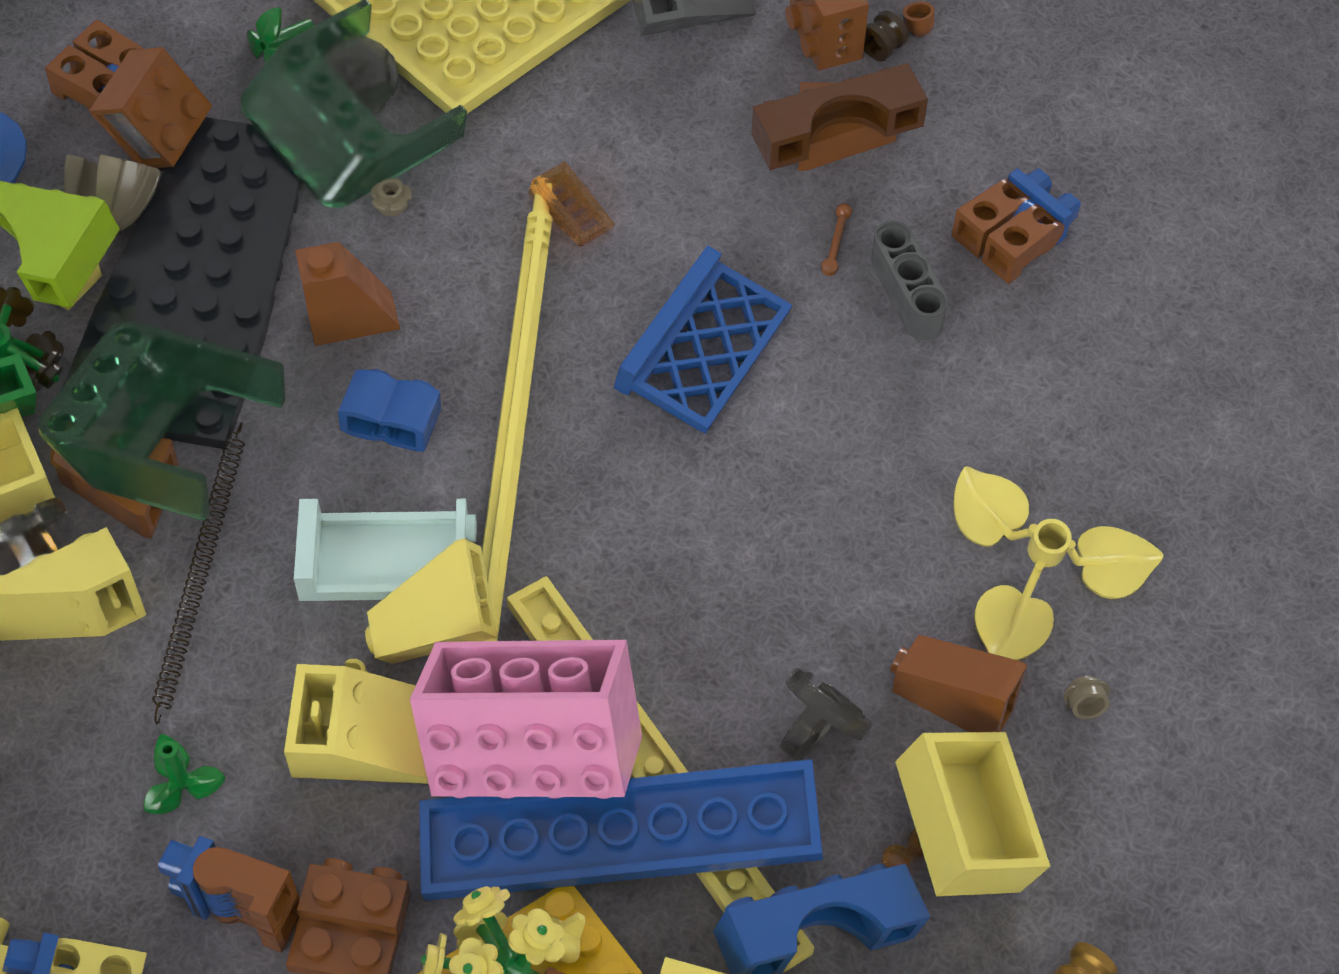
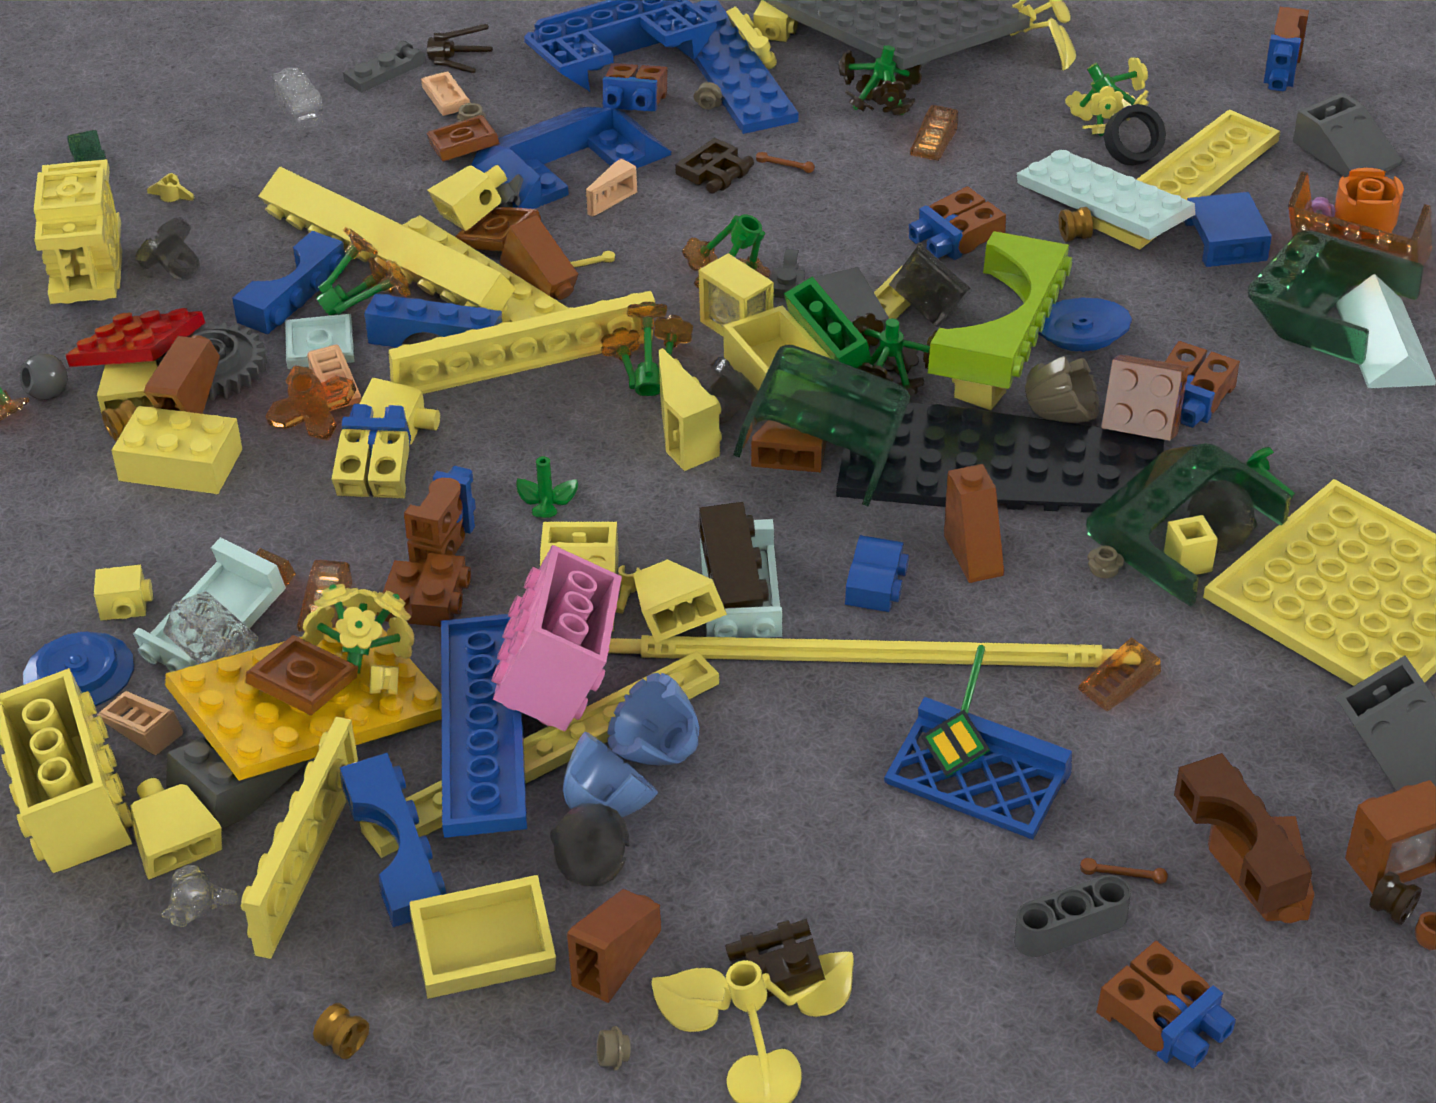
camera: 90 degrees right, 15 degrees down
(193, 571) = (723, 489): dark brown piece -> none
(371, 542) = (731, 556): none -> dark brown brick
(396, 105) = (1191, 544): none -> light yellow brick
(656, 634) = (654, 723): none -> medium blue hair
(678, 345) = (957, 739): none -> piece
(730, 692) = (602, 777): none -> medium blue hair
(984, 537) = (787, 967): none -> dark brown plate

